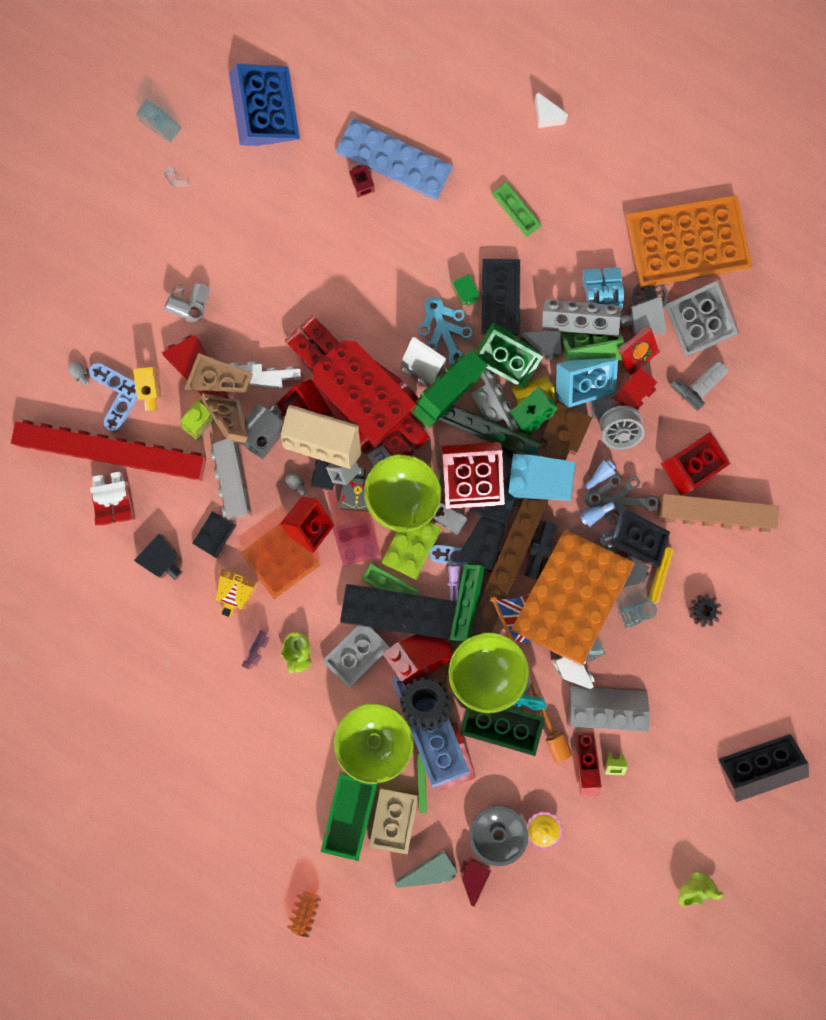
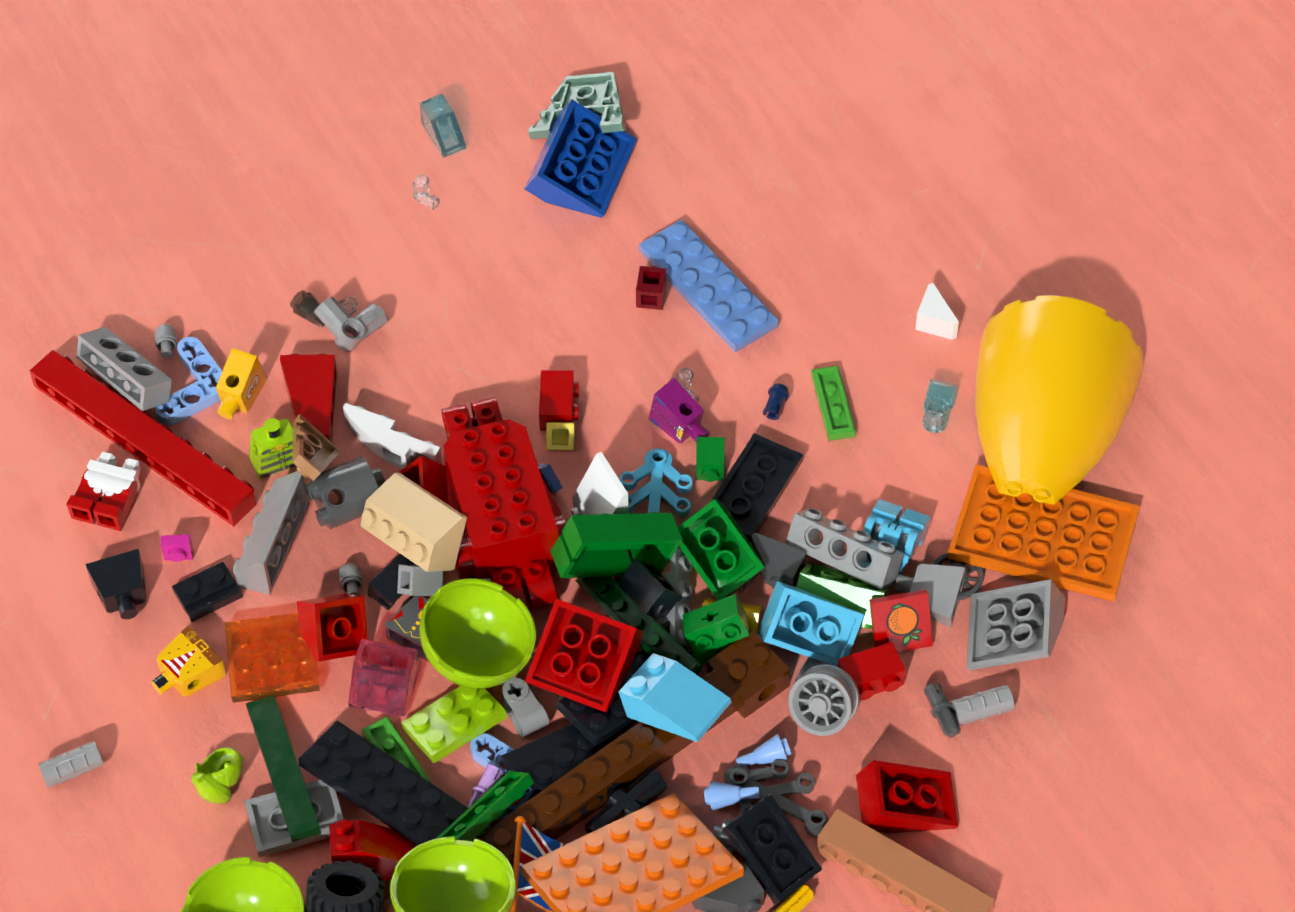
camera: 30 degrees right, 30 degrees down
(55, 408) = (123, 368): none -> light grey brick
(154, 304) = (305, 305): none -> clear smoke cone
(179, 517) = (177, 547): none -> dark pink plate
(206, 689) = (70, 764): none -> light grey axle
(217, 376) = (330, 405): medium nougat wing -> none
(241, 47) = (595, 92): none -> sand green wing
(254, 658) = (170, 742): wing -> none
(332, 629) = (283, 768): none -> dark green tile
(349, 294) = (557, 397): none -> red brick
(365, 319) = (560, 435): none -> light yellow slope
(374, 352) = (550, 477): none -> blue tile
(419, 244) = (685, 377): none -> clear arm
(425, 267) = (677, 413): none -> magenta torso
(482, 227) = (777, 395): none -> dark blue pin
(482, 405) = (649, 588): none -> black hinge
(582, 177) = (938, 405): none -> clear light blue piece
(648, 143) = (1052, 393): none -> yellow panel

